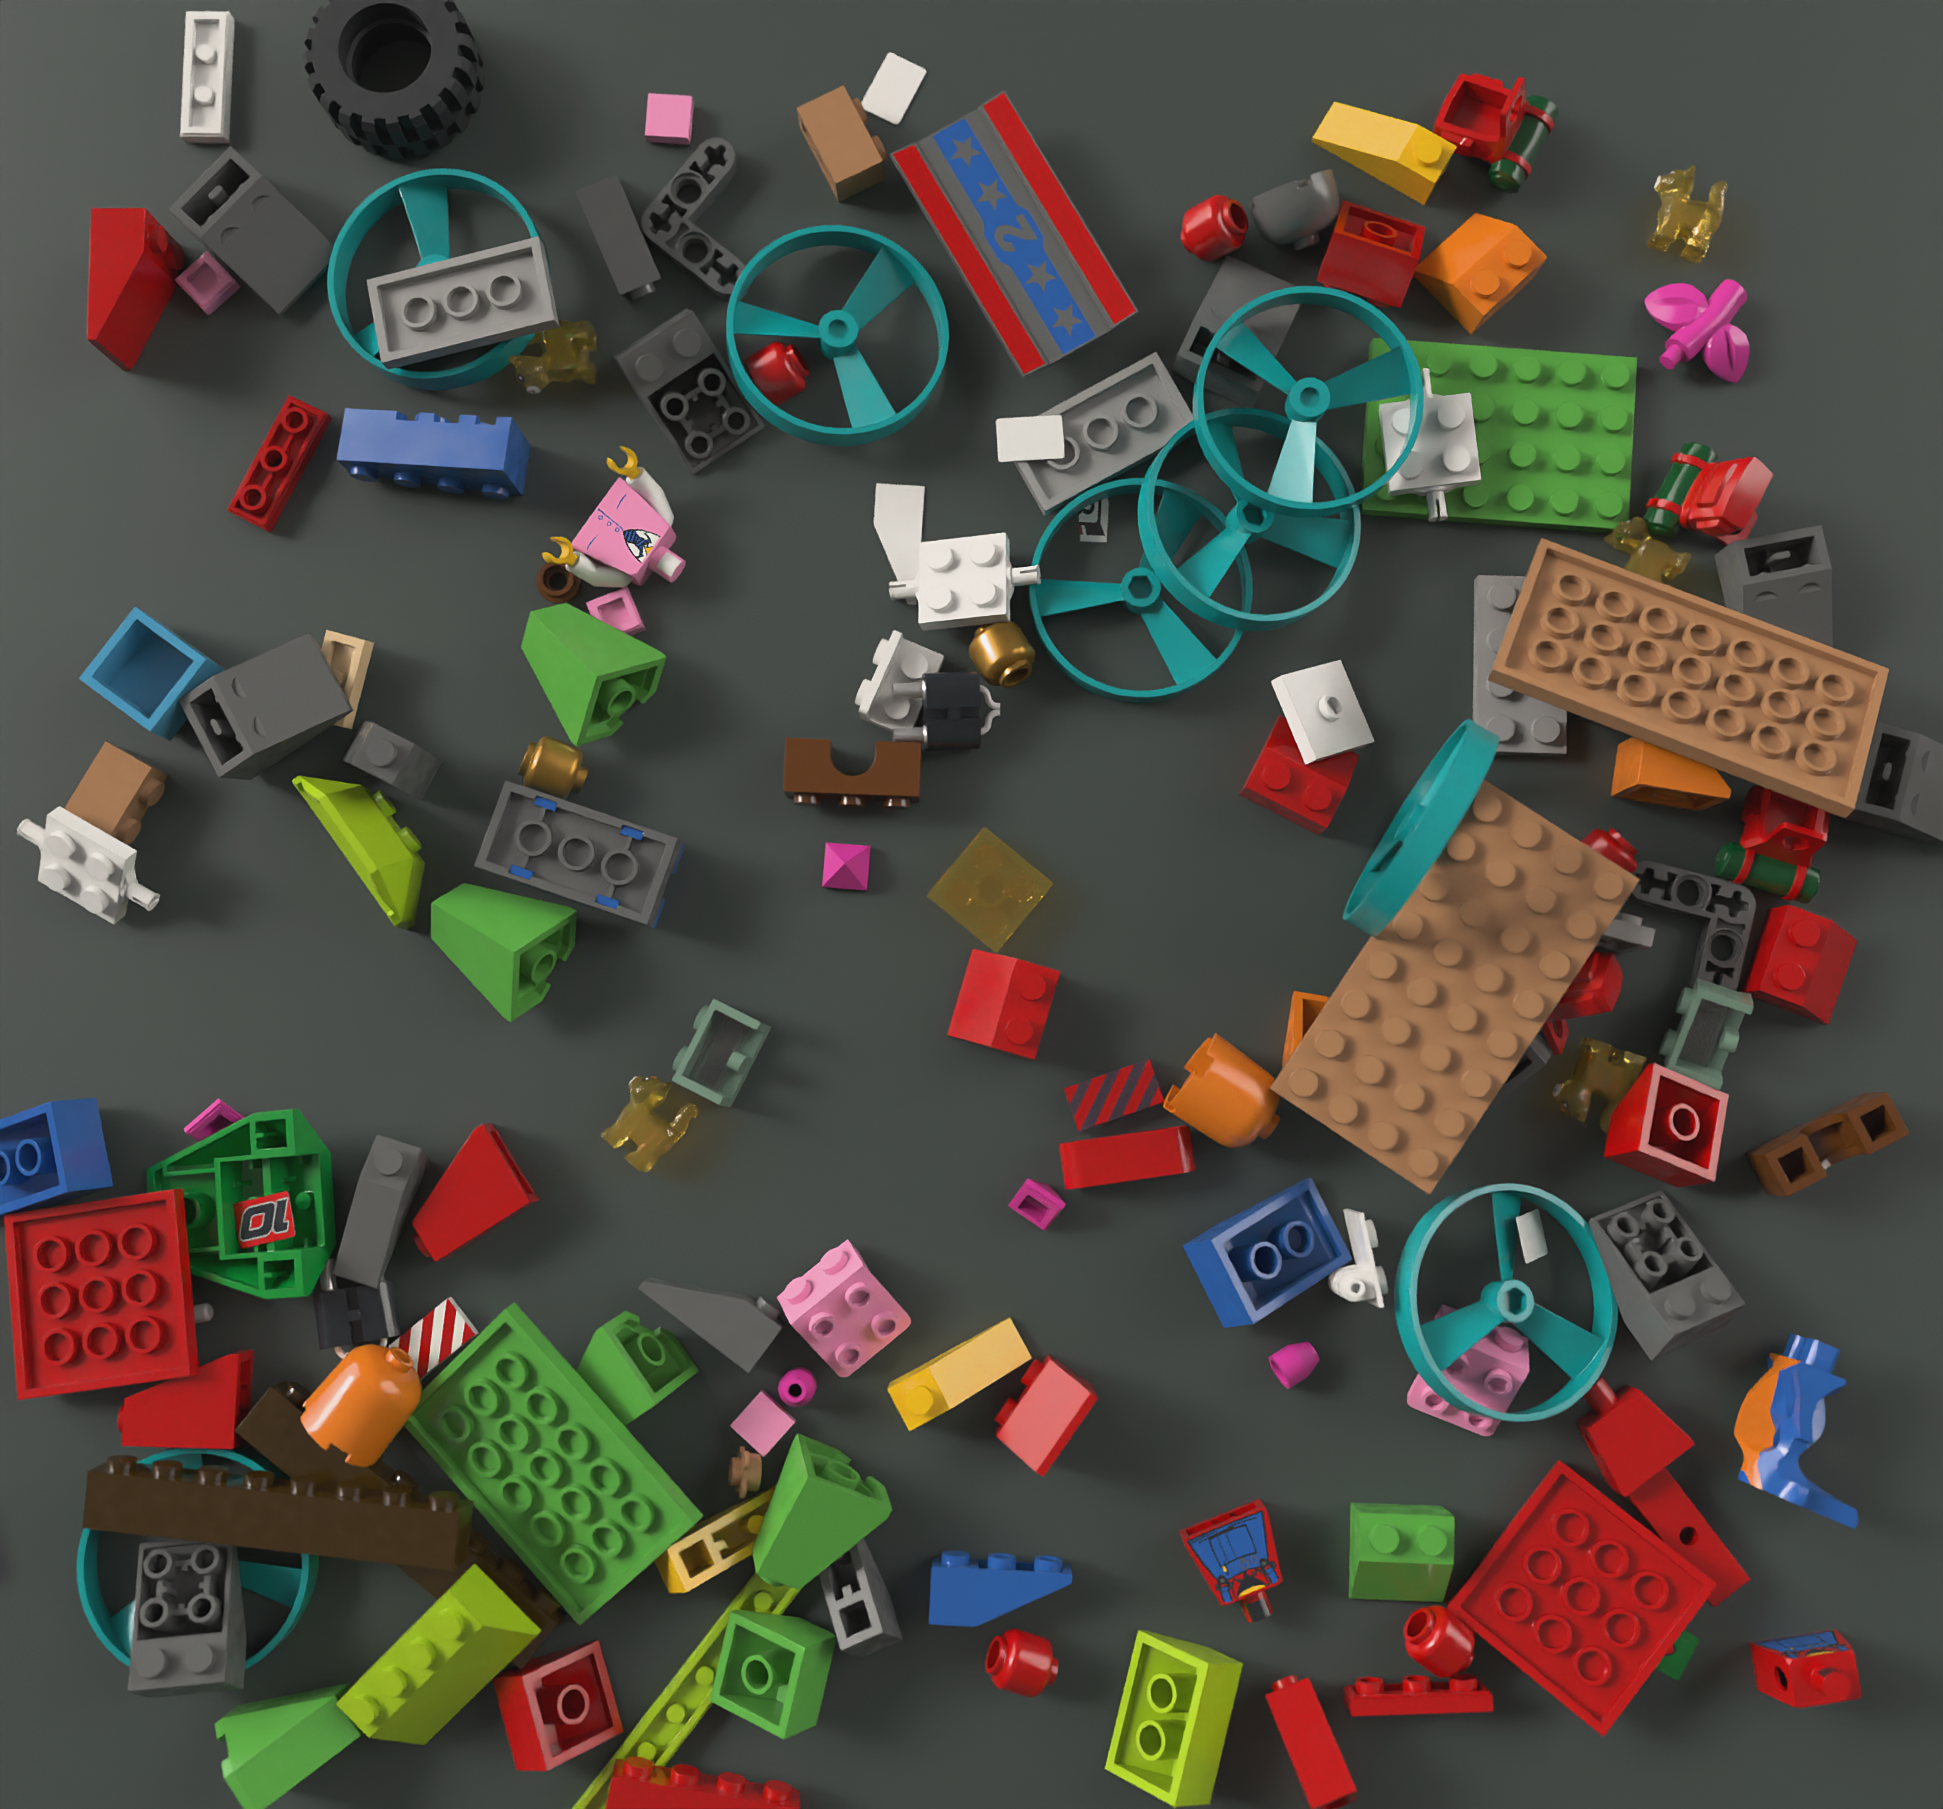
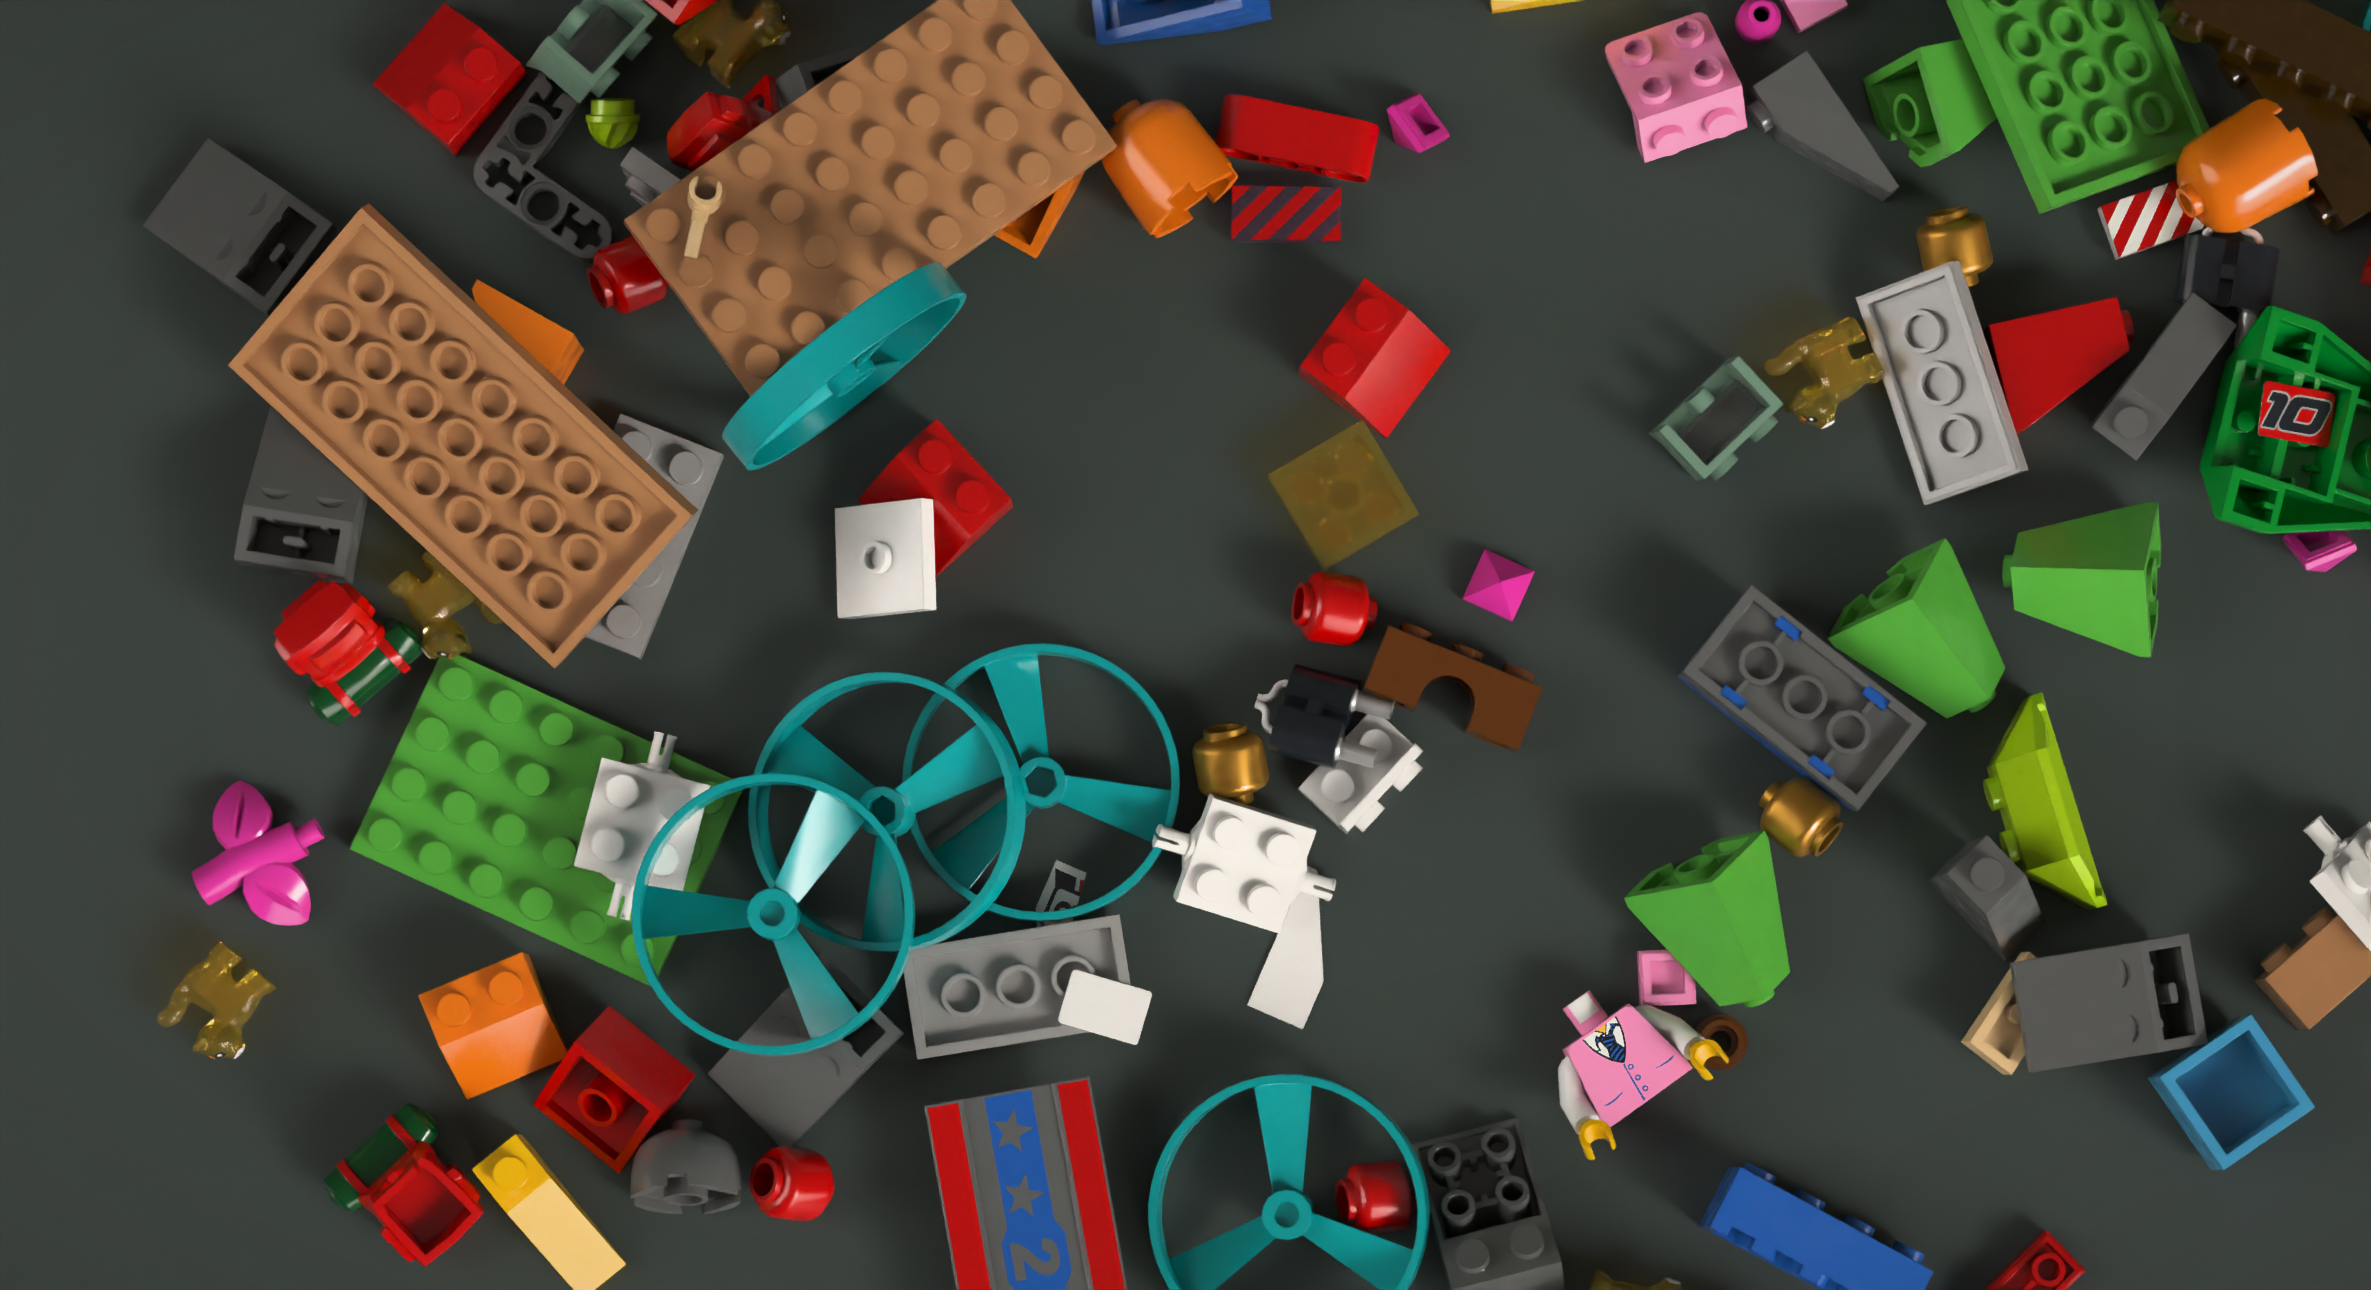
camera: 170 degrees left, 0 degrees up
(386, 1034) = (2092, 576): none -> bright green slope
(552, 1144) = (1942, 383): none -> light grey tile
(579, 1258) = (1955, 236): none -> pearl gold head
(966, 799) = (1333, 608): none -> red head
(1583, 901) = (699, 217): none -> tan hand
(1663, 977) = (612, 121): none -> lime plate
(1776, 846) = (437, 207): red piece -> none

